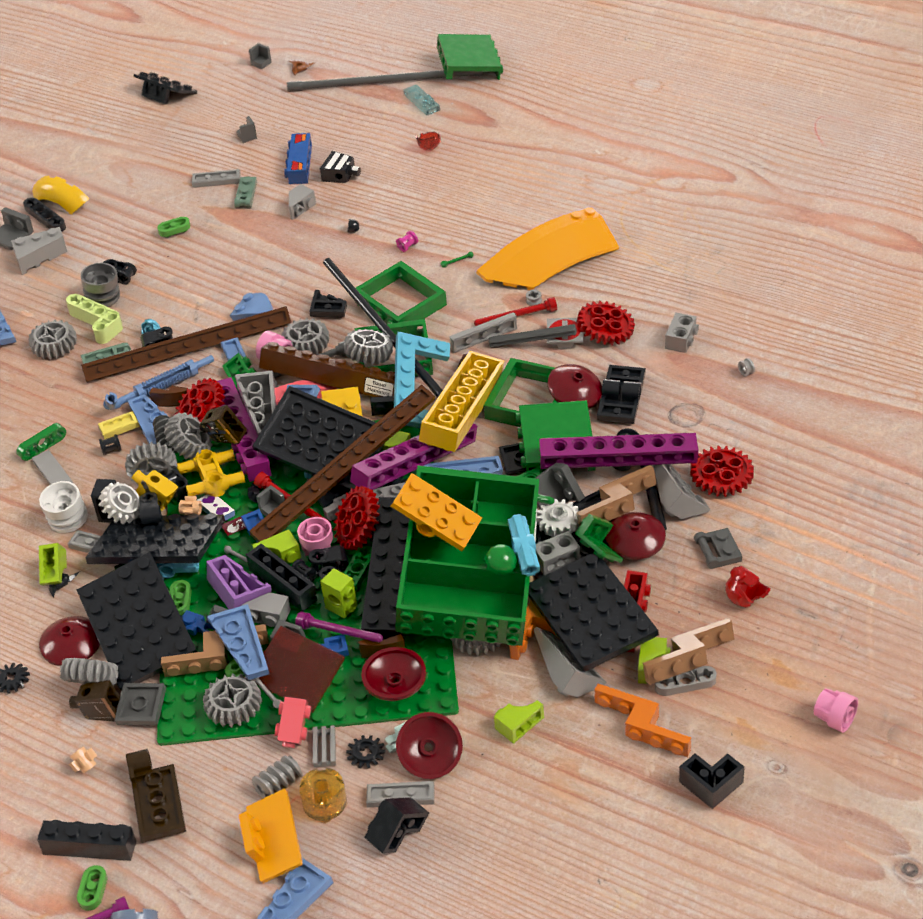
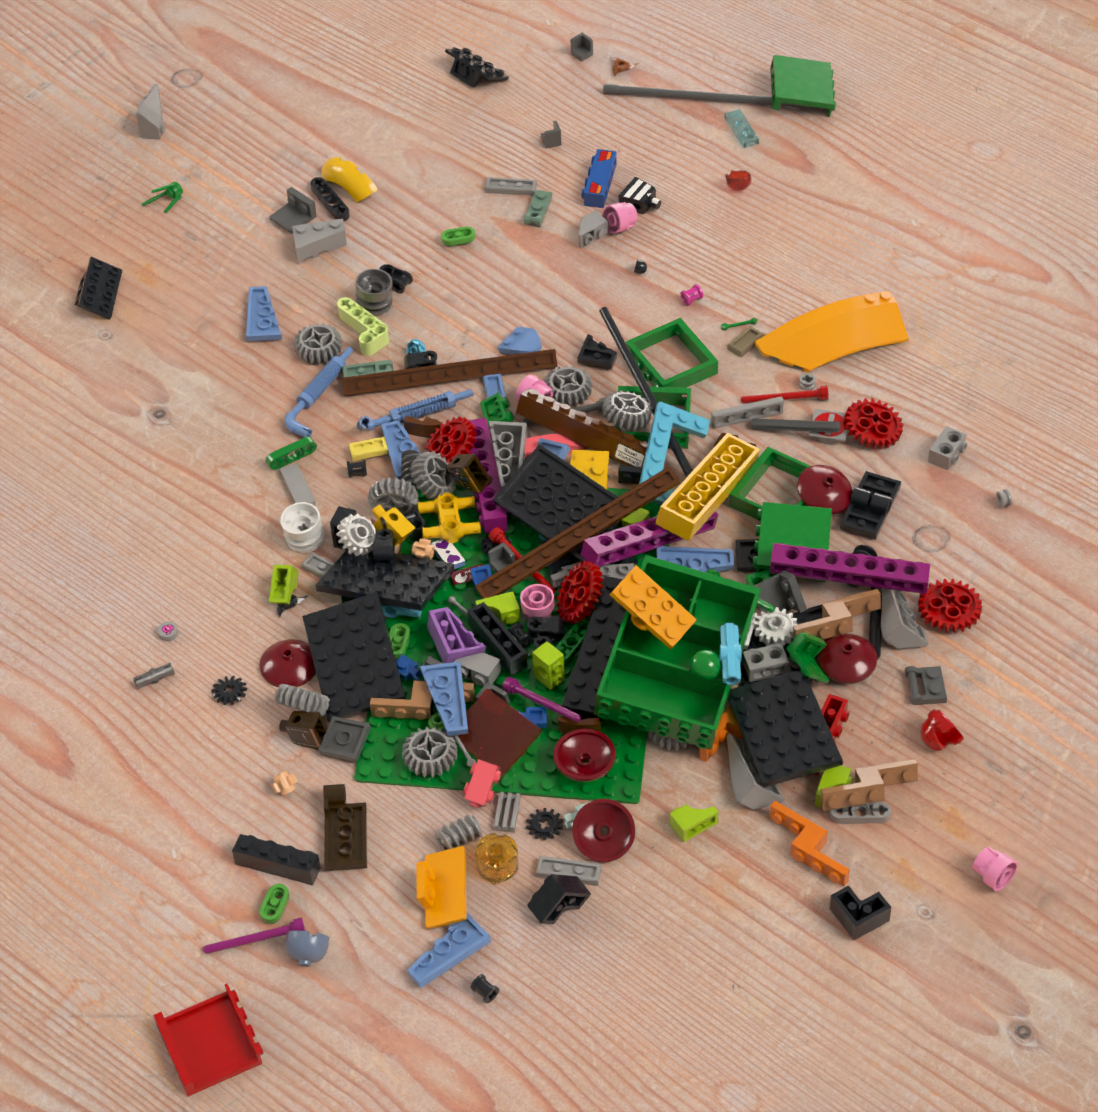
camera: 10 degrees right, 5 degrees up
(55, 382) = (313, 391): none -> medium blue piece
(325, 186) = (620, 217): none -> bright pink piece
(466, 273) = (744, 341): none -> dark tan tile

